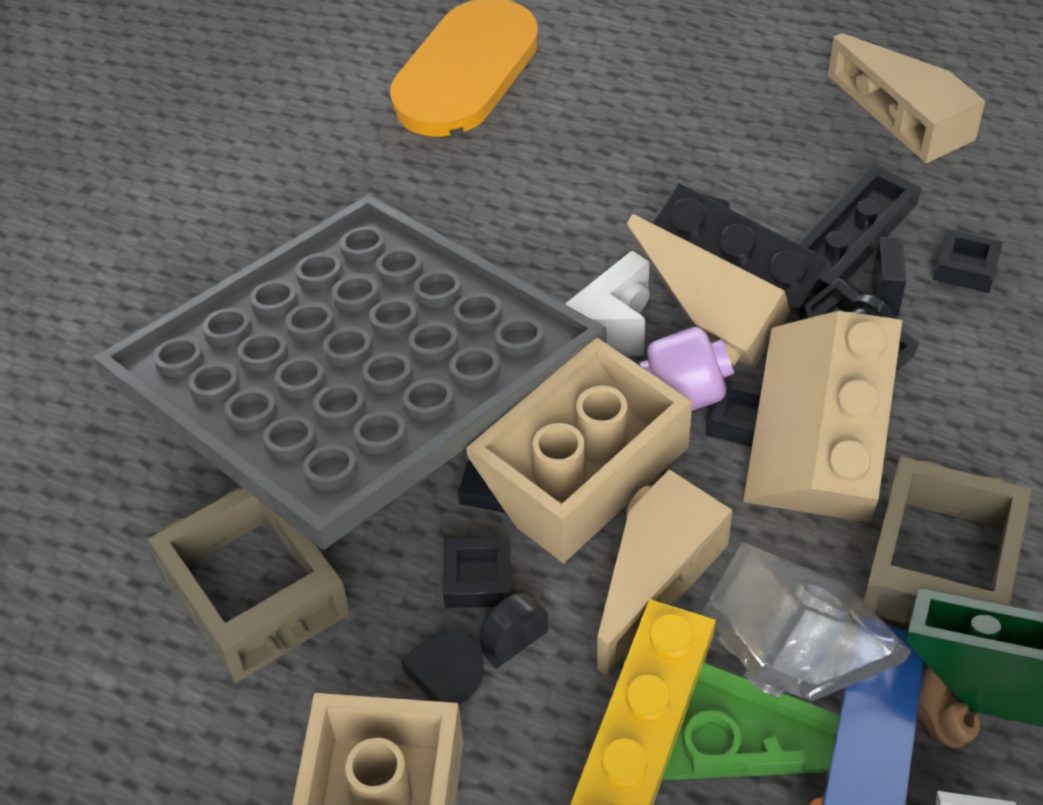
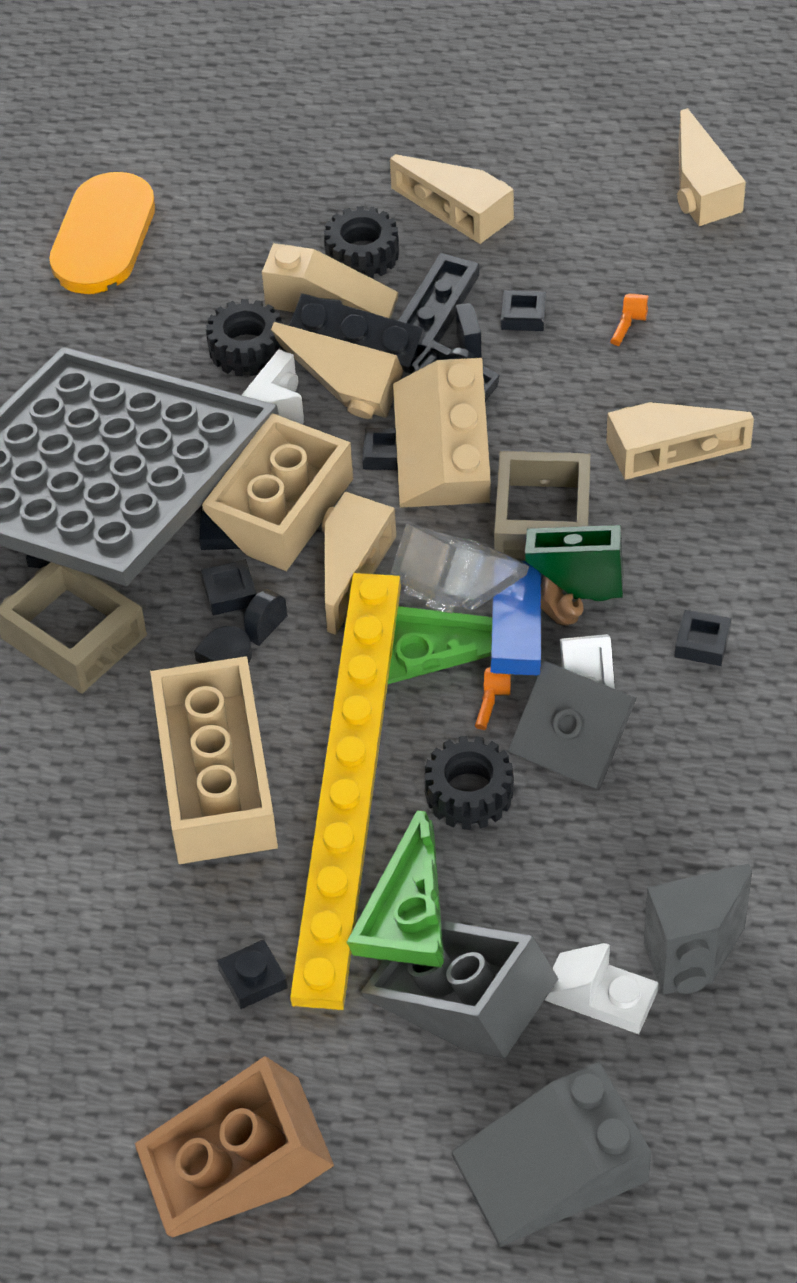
camera: 15 degrees left, 0 degrees up
(587, 204) = (242, 320): none -> black tyre
(691, 365) = (343, 419): lavender head -> none
(707, 164) = (307, 271): none -> tan slope
(770, 154) = (363, 226): none -> black tyre

